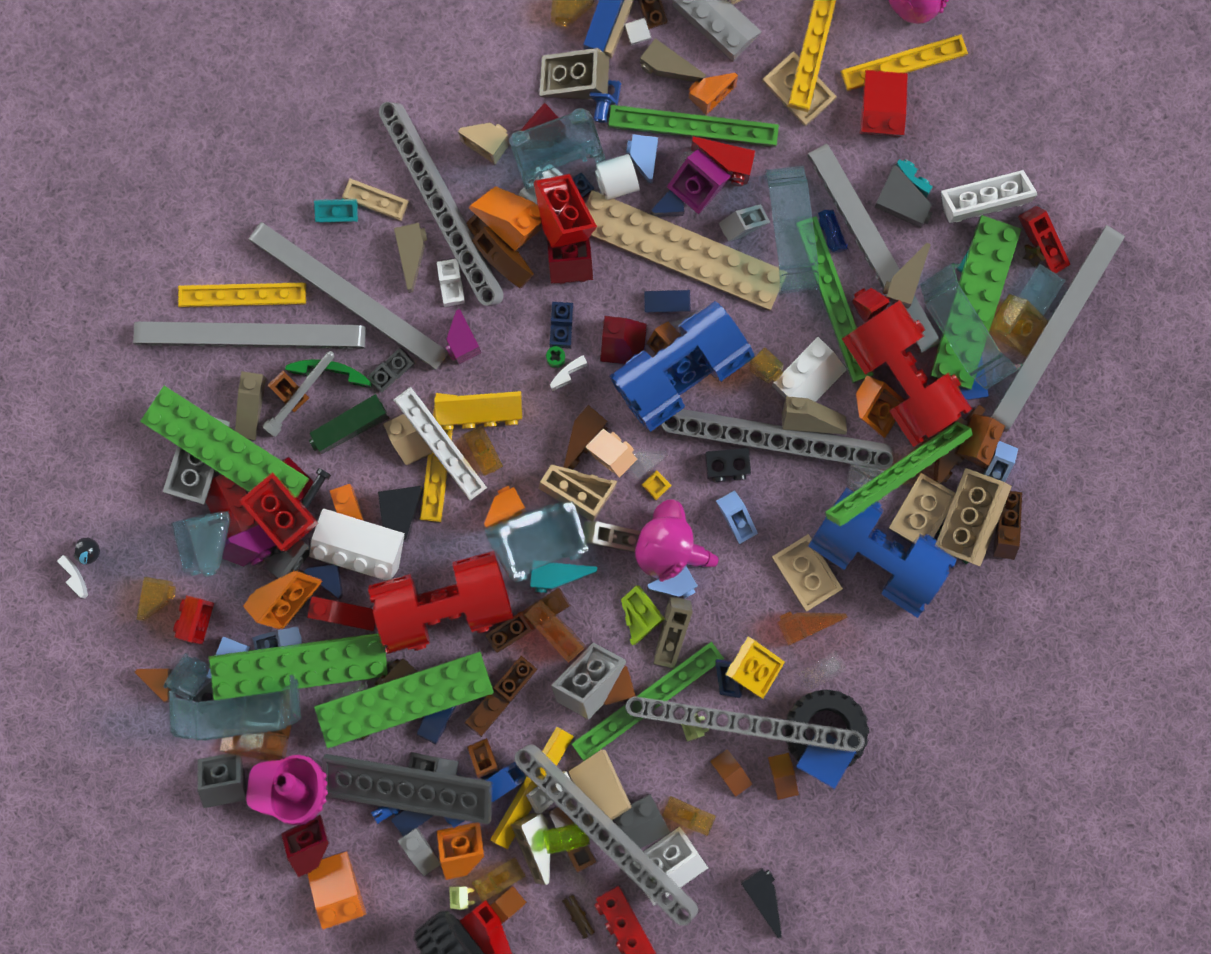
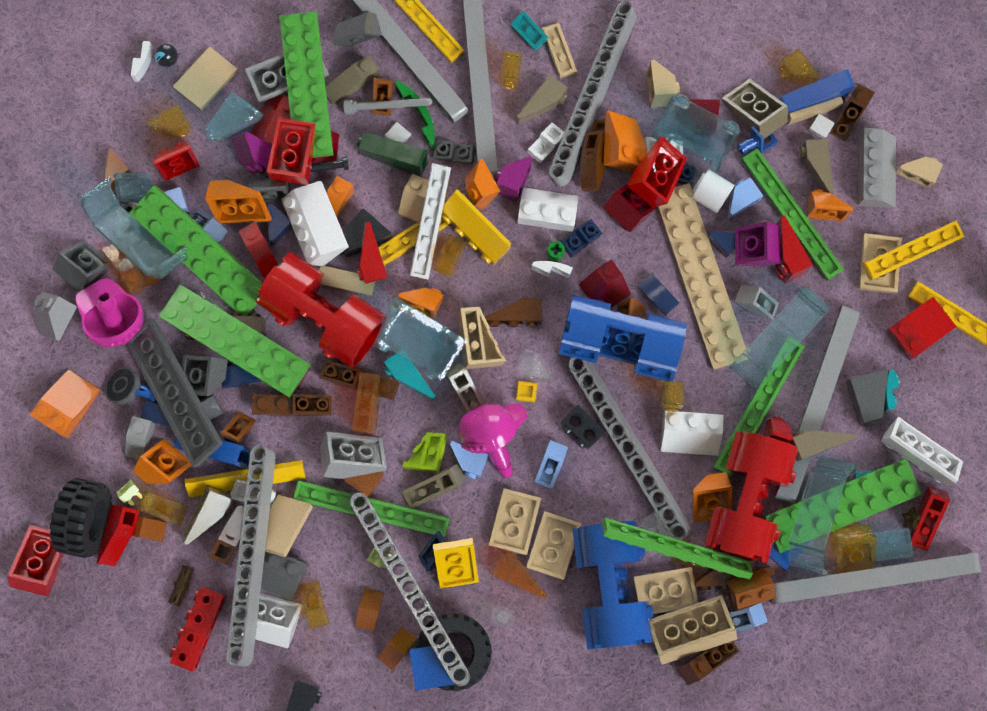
camera: 40 degrees right, 5 degrees down
(136, 533) = (205, 78): none -> tan tile
(208, 362) = (357, 29): none -> dark grey slope
(248, 840) = (52, 315): none -> light grey slope
(306, 845) = (79, 357): dark red slope -> none
(333, 406) = (398, 133): none -> white tile
(360, 258) = (510, 69): none -> clear yellow slope
(361, 829) = (122, 385): none -> tile
(411, 749) = (204, 373): none -> dark grey slope
(429, 523) = (370, 258): none -> red slope
(430, 558) = (345, 281): none -> tan tile
(443, 372) = (481, 185): none -> orange slope
(512, 331) = (548, 209): none -> white slope
(565, 838) = (225, 528): clear neon green plate -> none
(612, 452) = (522, 340): light nougat brick -> none
(759, 588) = (515, 521): none -> tan plate
(810, 416) = (664, 456): dark tan slope -> none
(835, 238) = (806, 362): clear blue plate -> none

